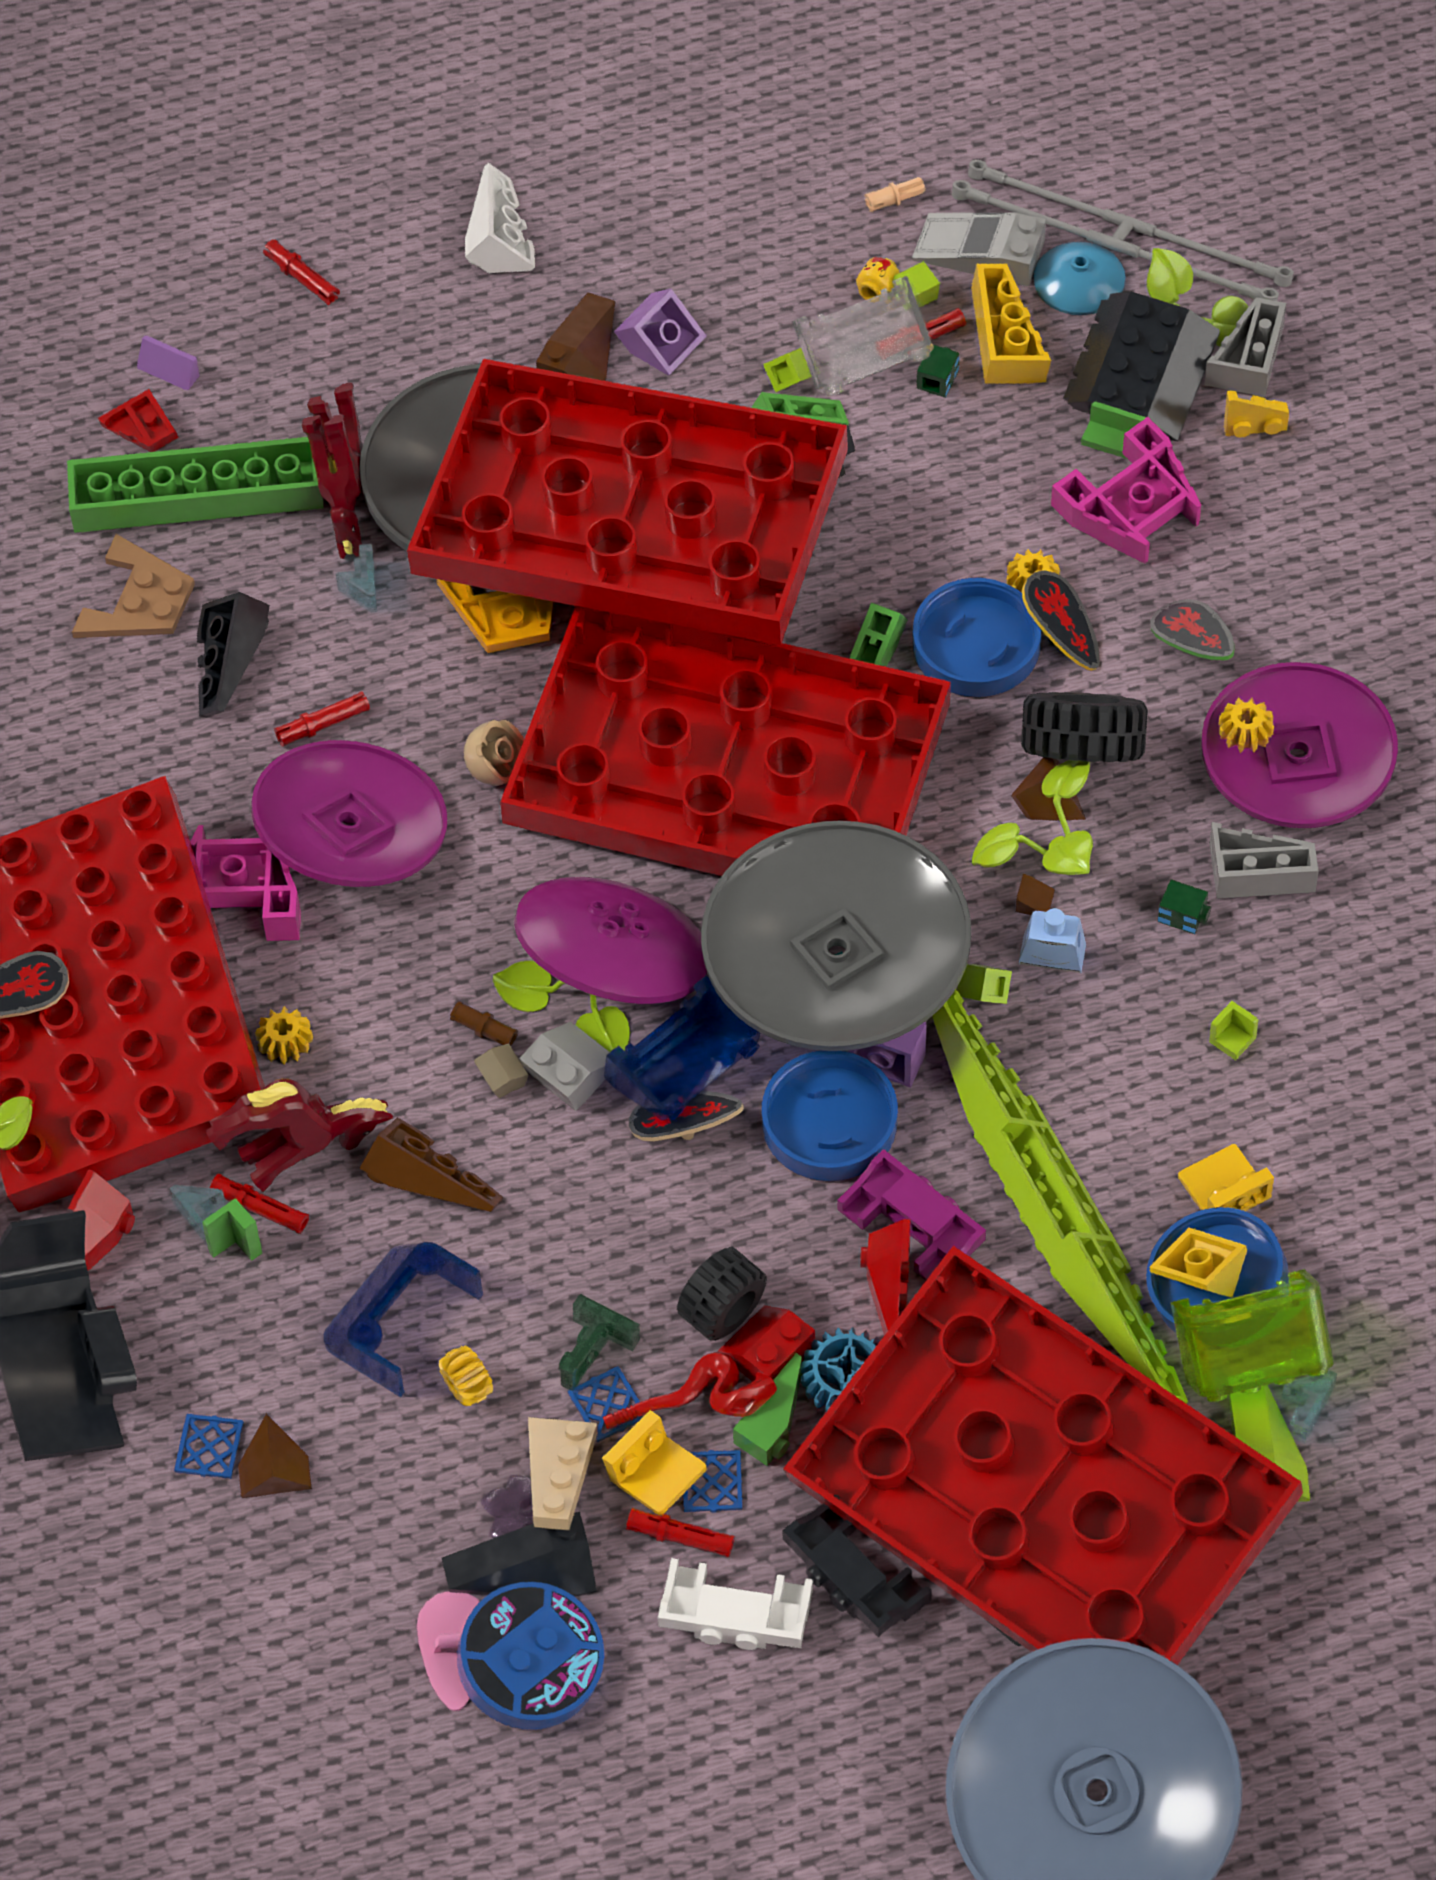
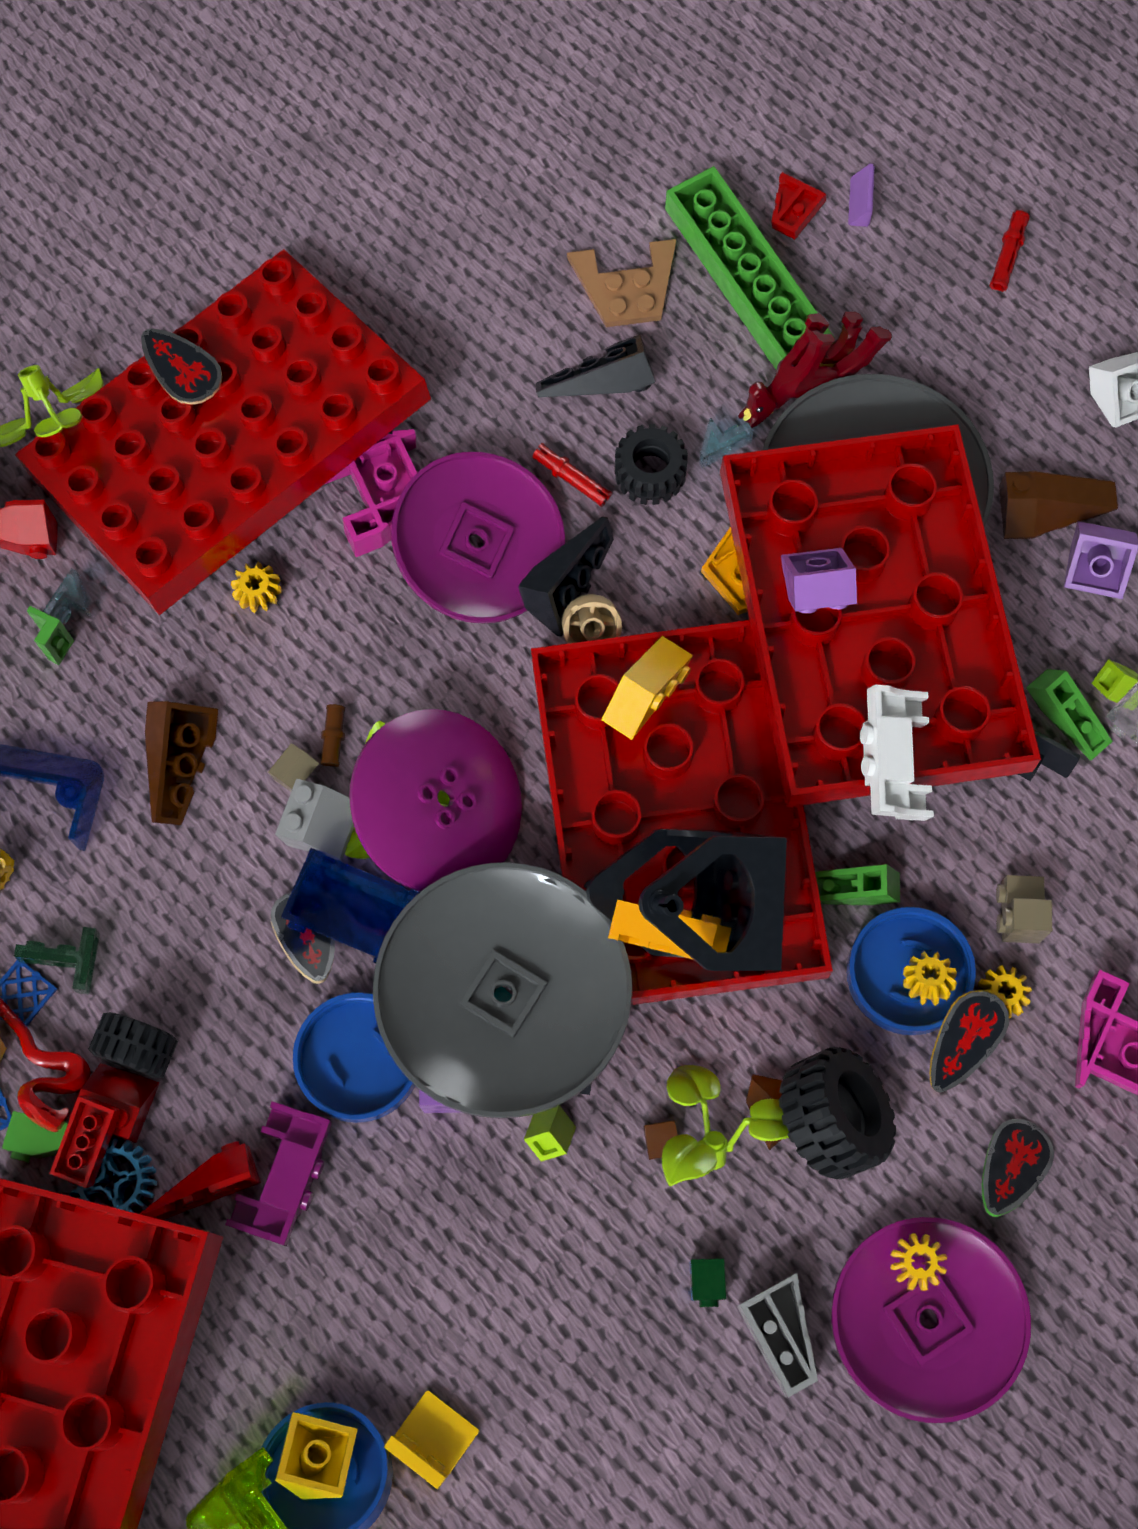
camera: 65 degrees right, 15 degrees up
(261, 1204) = (99, 613): red pin -> none
(297, 1123) = (147, 629): dark red animal -> none
(356, 664) = (650, 443): none -> black tyre
(432, 764) = (565, 574): none -> black wedge
(583, 515) = (819, 580): none -> medium lavender slope
(602, 710) = (647, 686): none -> yellow wedge
(784, 523) = (889, 752): none -> white bracket
(801, 1358) = (85, 1141): none -> red piece
(849, 711) = (734, 880): none -> black piece
(860, 762) = (631, 927): none -> light orange wedge
(968, 526) = (1025, 912): none -> dark tan brick
(993, 618) = (937, 981): none -> yellow gear
(1050, 1194) = (344, 1297): lime wedge -> none
(1053, 941) = (614, 1179): light blue torso -> none
(1233, 1030) = (593, 1382): lime panel -> none

